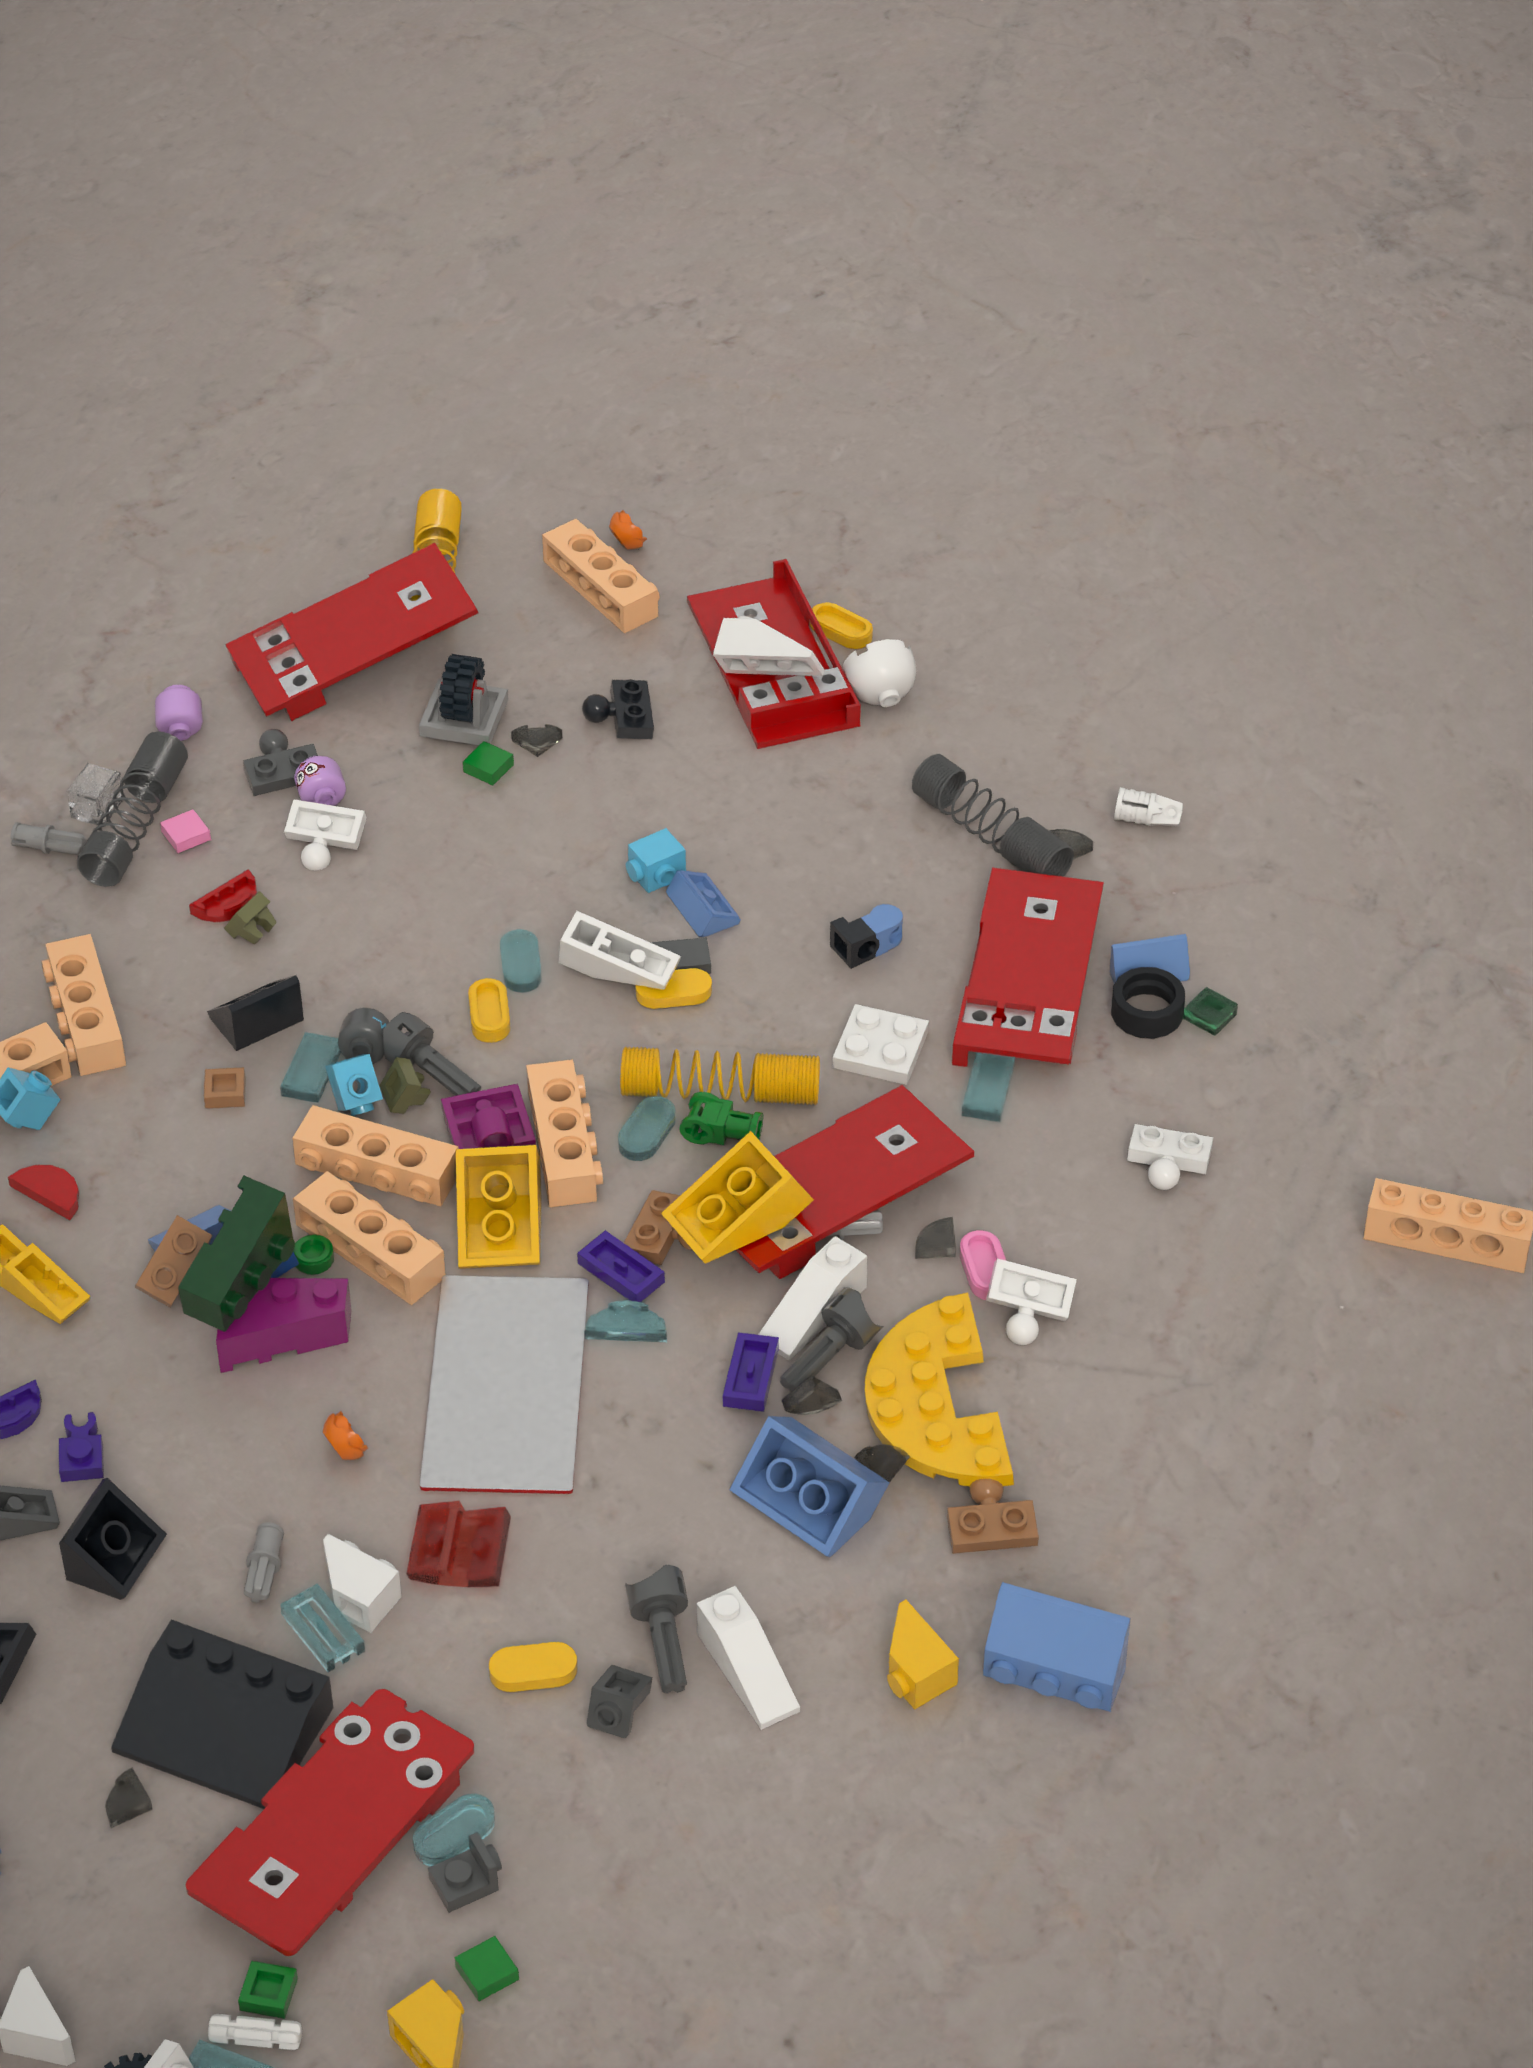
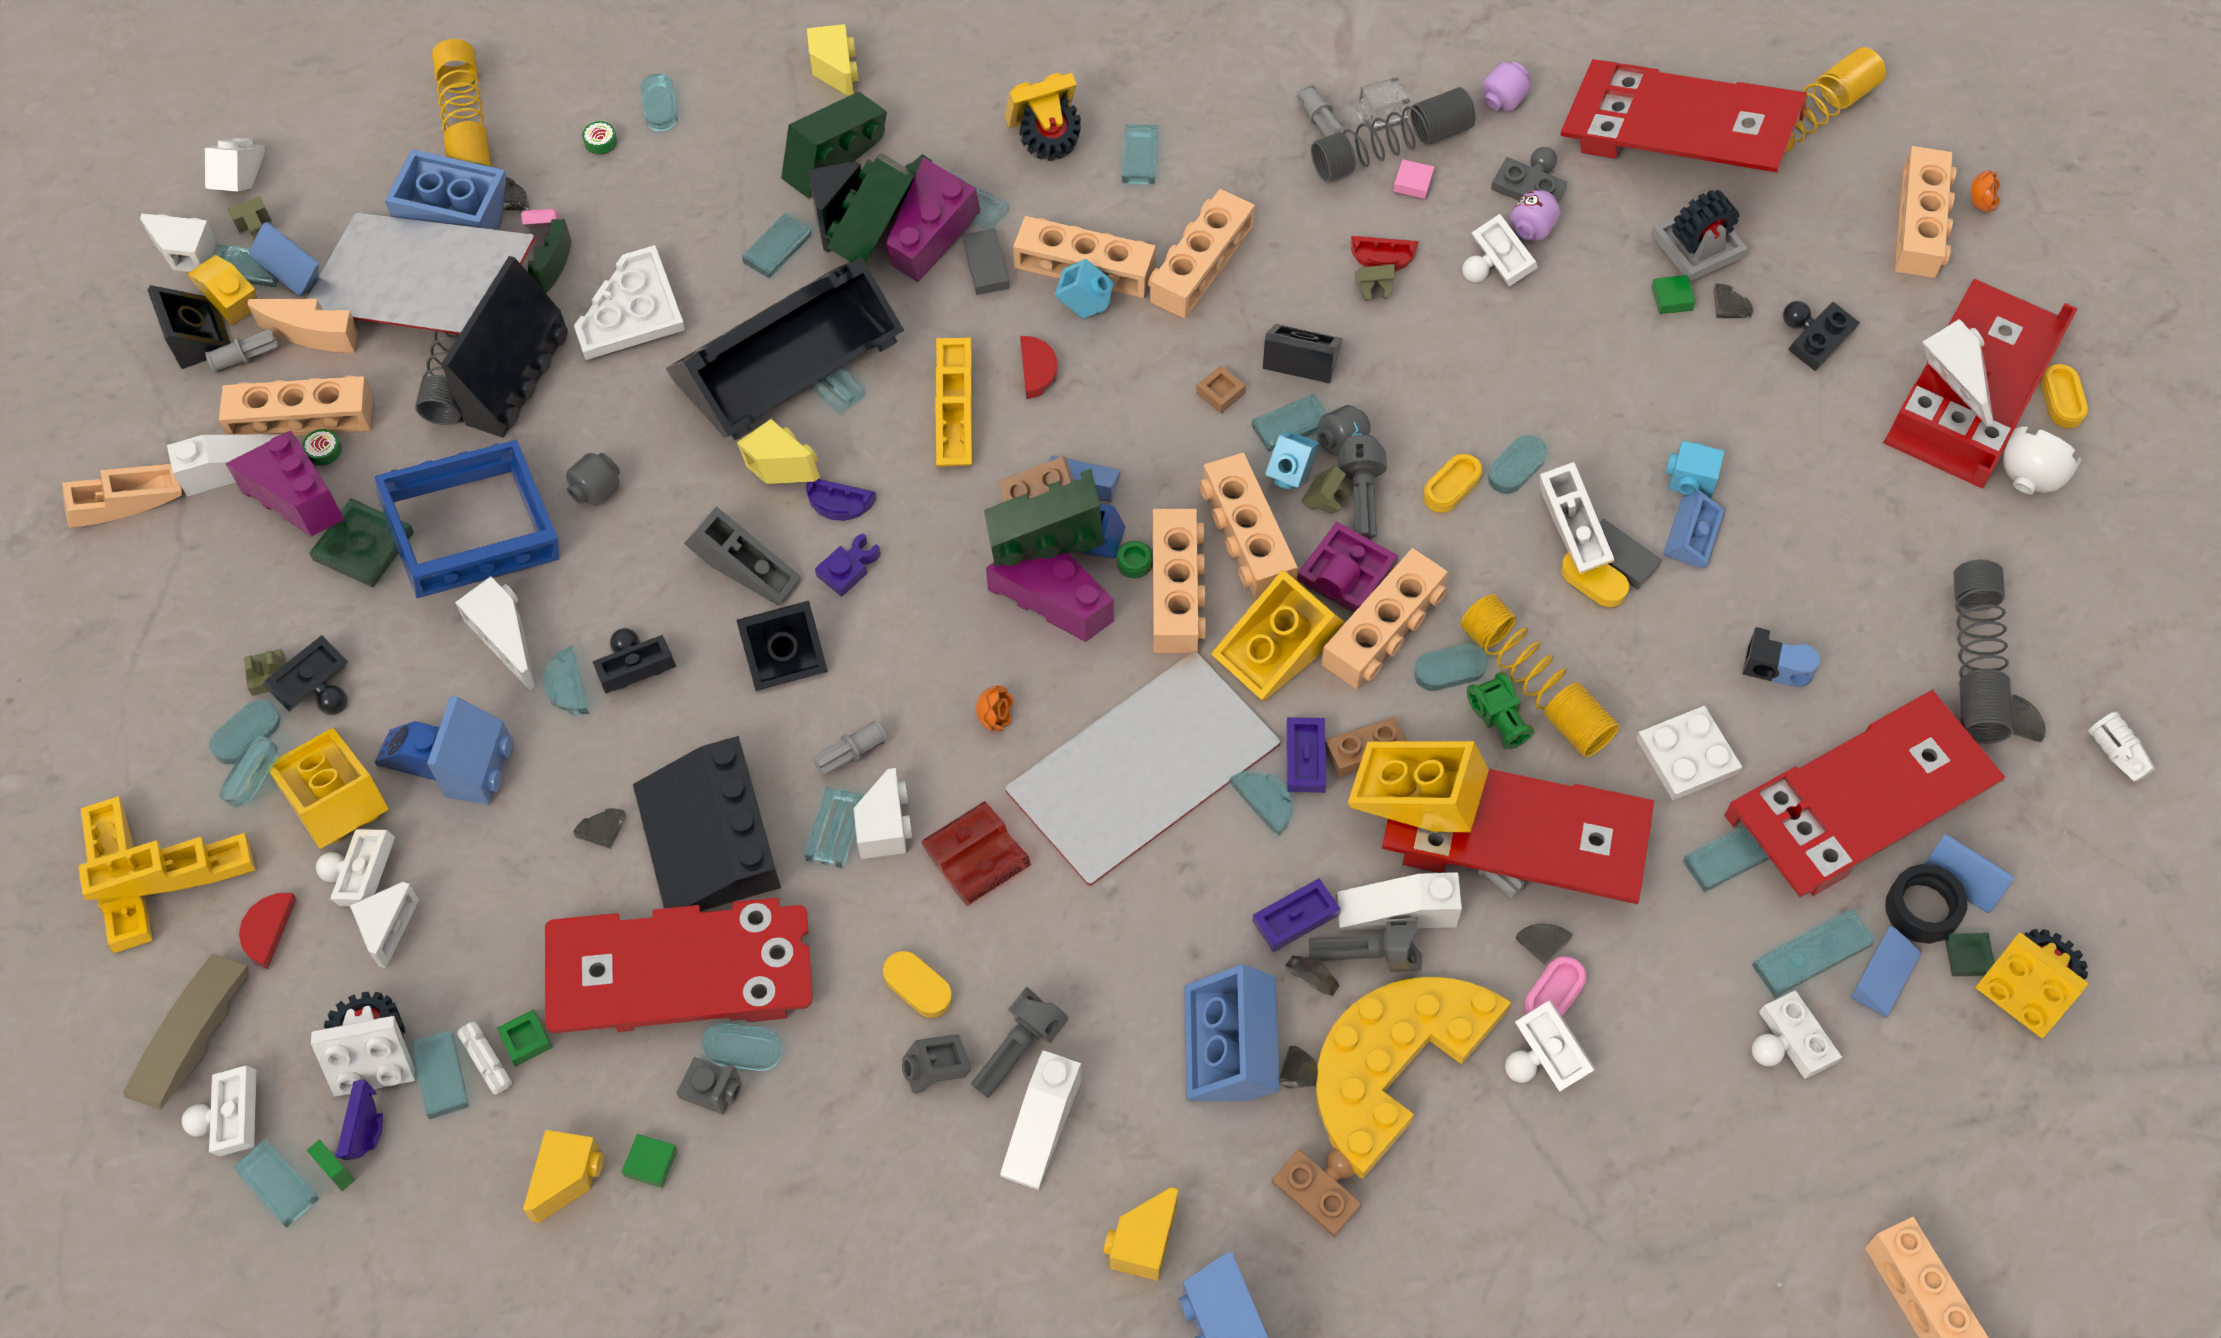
camera: 50 degrees right, 15 degrees up
(1115, 1095) = (1813, 953): none -> clear light blue tile
(1173, 1066) = (1886, 972): none -> medium blue slope
(1273, 986) = (2036, 979): none -> yellow plate

